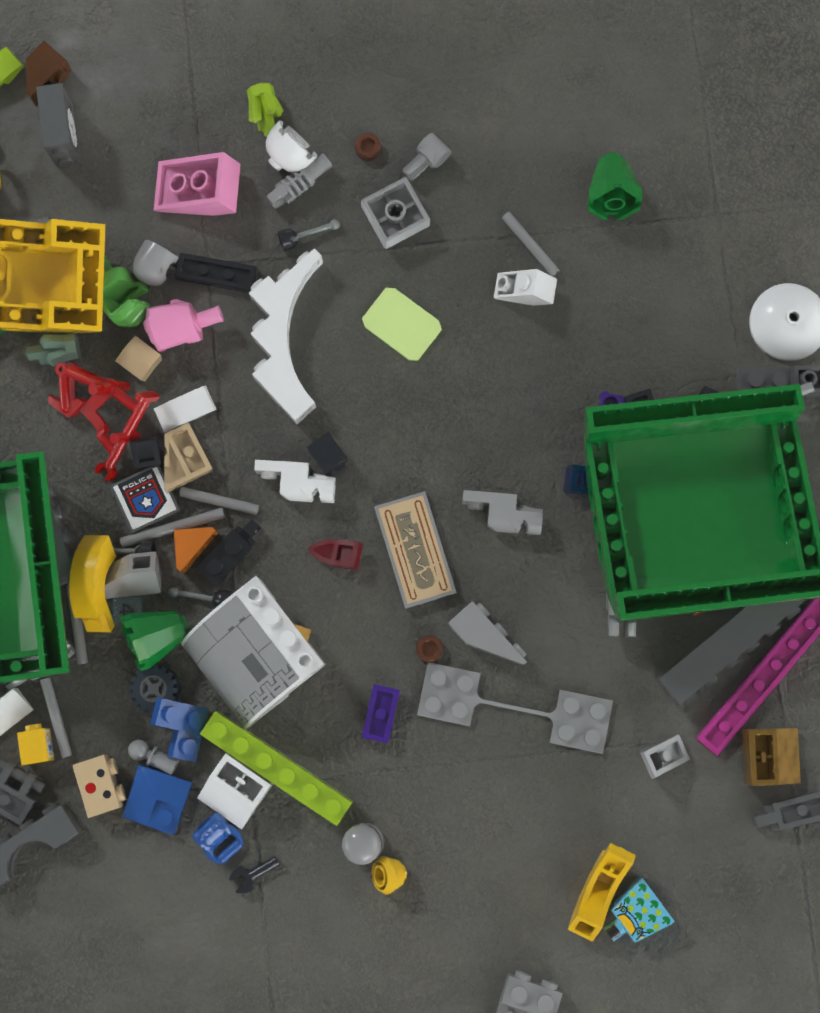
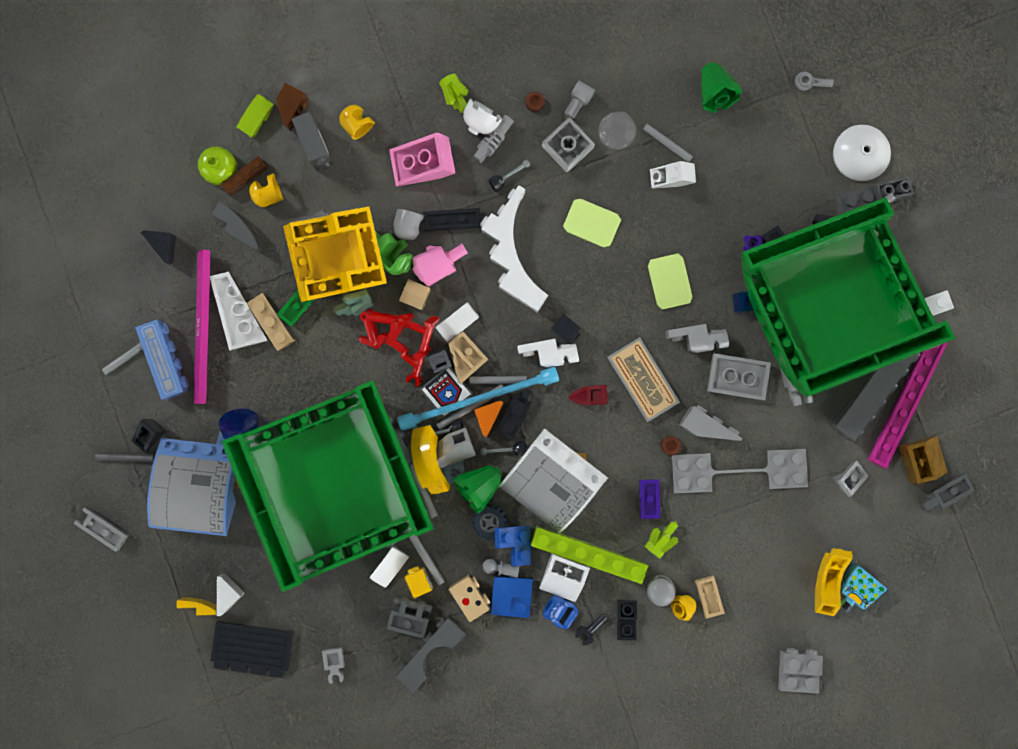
camera: 15 degrees left, 5 degrees up
(84, 524) = (409, 420): none -> medium azure hose
(120, 113) = (353, 123): none -> yellow helmet
(306, 873) = (626, 620): none -> black slope
(375, 781) = (661, 542): none -> lime rock
(428, 870) = (709, 596): none -> tan plate
(466, 211) = (617, 130): none -> clear dish
(486, 428) = (670, 281): none -> yellowish green piece
(545, 578) = (738, 377): none -> light grey plate
(735, 208) = (805, 81): none -> light grey plate

